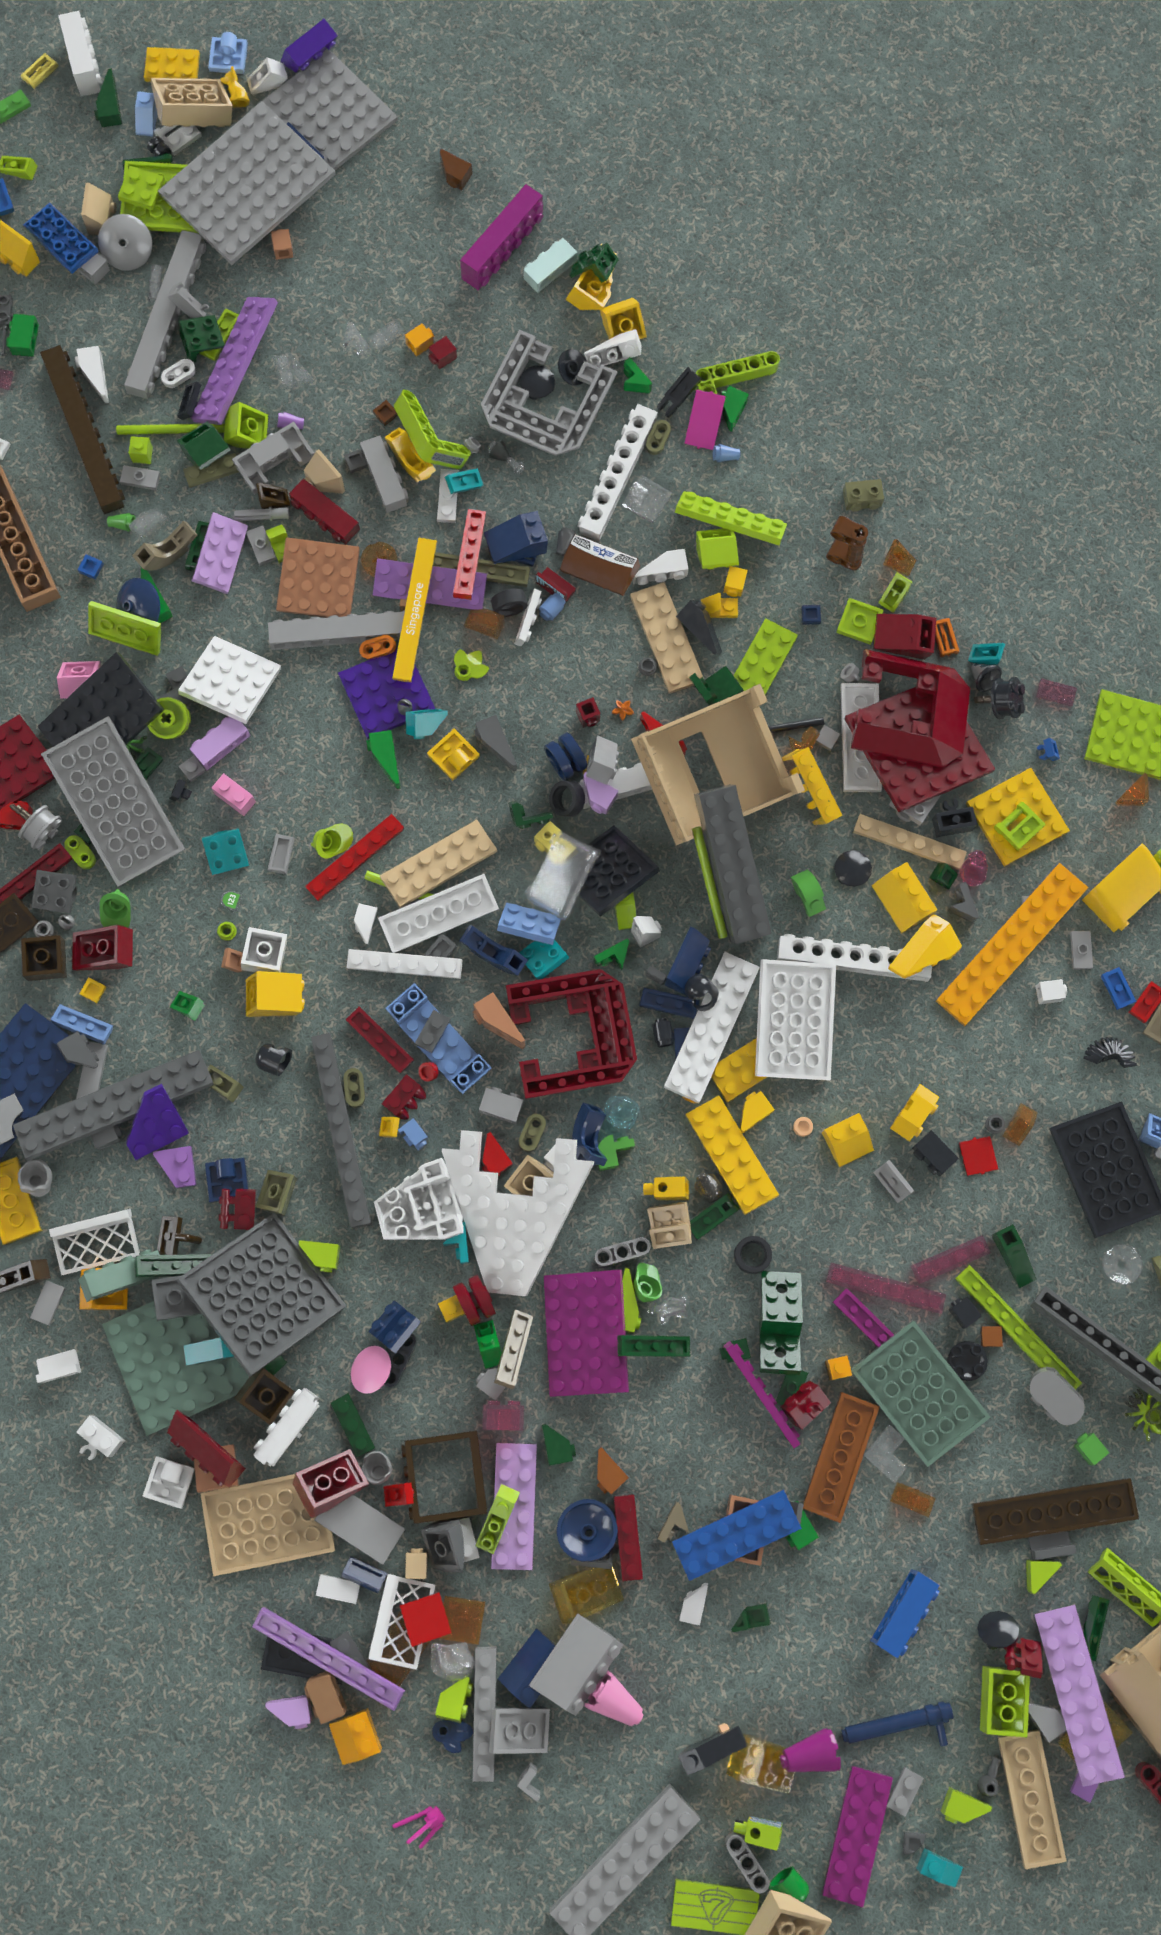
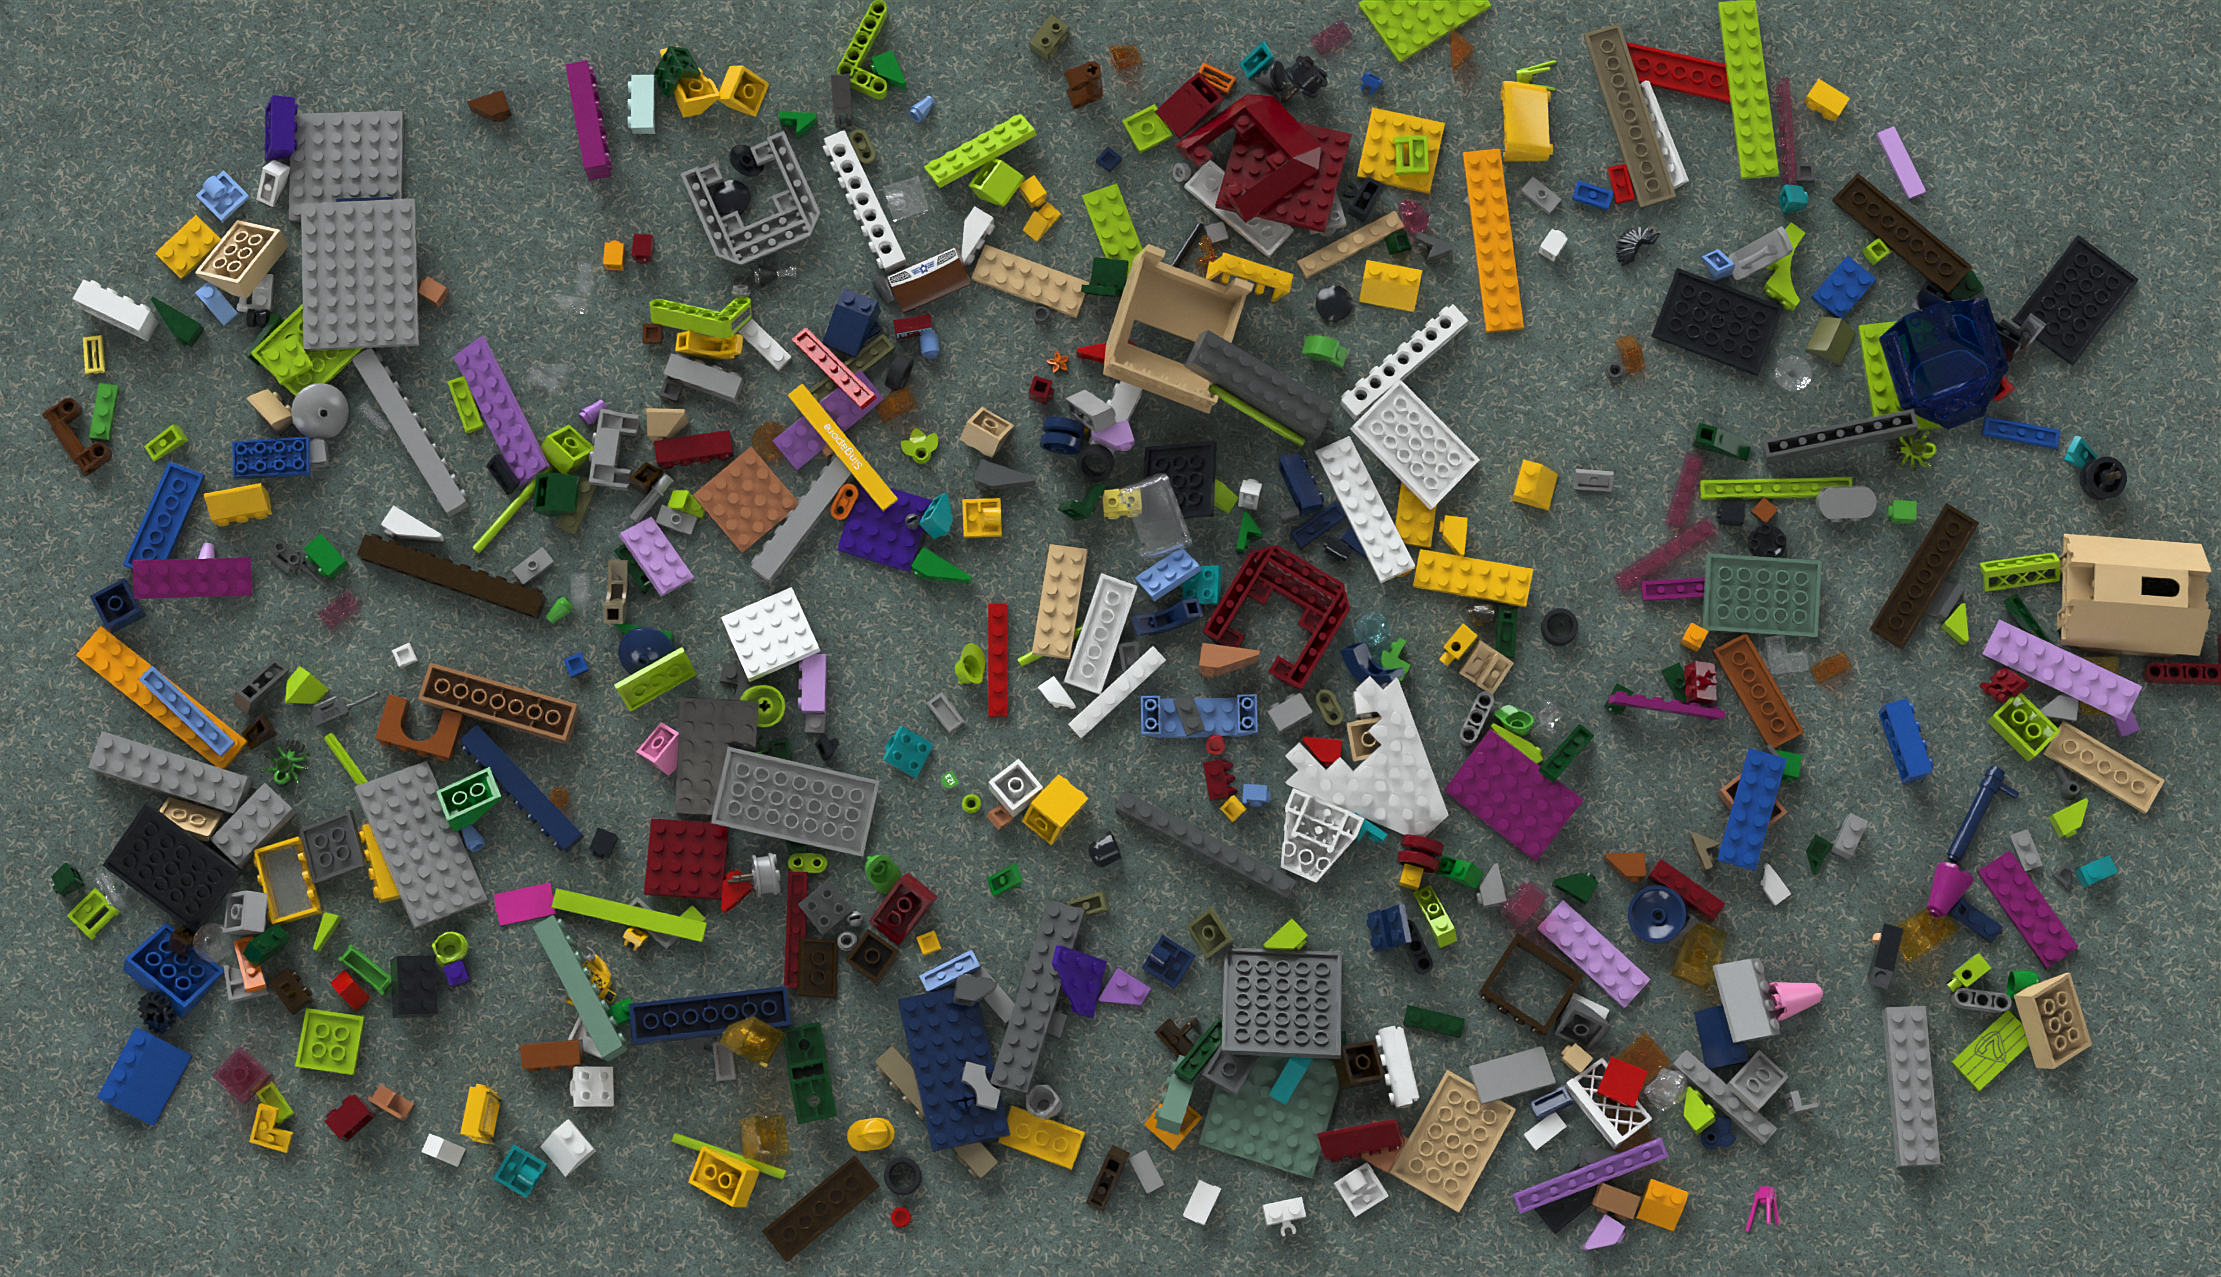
camera: 45 degrees left, 0 degrees up
(89, 1225) = (1114, 1091): white fence -> none
(140, 450) = (512, 546): lime brick -> none
(177, 372) = (471, 464): white plate -> none
(186, 301) = (419, 406): light grey hinge -> none
(200, 335) = (456, 421): dark green bracket -> none
(233, 794) = (867, 708): bright pink brick -> none
(238, 94) = (263, 215): yellow animal -> none
(244, 1209) = (1203, 967): dark red plate -> none
(329, 1483) = (1465, 1069): dark red slope -> none
(354, 1088) = (1180, 809): olive plate -> none
(370, 1369) = (1405, 972): bright pink shield -> none
(376, 1467) = (1481, 1028): light grey hair -> none
(379, 1040) = (1159, 760): dark red plate -> none
(398, 1494) = (1515, 1028): red plate -> none
(437, 1354) = (1435, 916): none -> lime slope
(464, 481) = (766, 322): teal plate -> none
(497, 1519) = (1594, 970): lime slope -> none
(513, 1349) = (1481, 855): plate -> none
(521, 702) = (986, 432): none -> tan slope
(528, 618) = (923, 370): white plate -> none
(615, 349) = (761, 116): white slope -> none
(697, 987) = (1329, 492): black helmet -> none
(700, 624) = (1043, 247): black slope -> none
(705, 419) = (882, 100): dark pink piece -> none
(780, 1323) = (1626, 649): bracket -> none
(787, 1633) = (1849, 836): none -> light grey brick
(803, 1126) = (1496, 509): light nougat tile -> none
(810, 1800) = (1975, 920): none -> dark blue plate
(895, 592) = (1149, 83): lime slope -> none
(915, 1112) = (1558, 421): yellow brick -> none
(927, 947) = (1445, 300): yellow wedge -> none
(934, 1153) = (1599, 433): black brick -> none
(978, 1156) = (1627, 404): red piece -> none
(998, 1630) = (1971, 687): black dish -> none

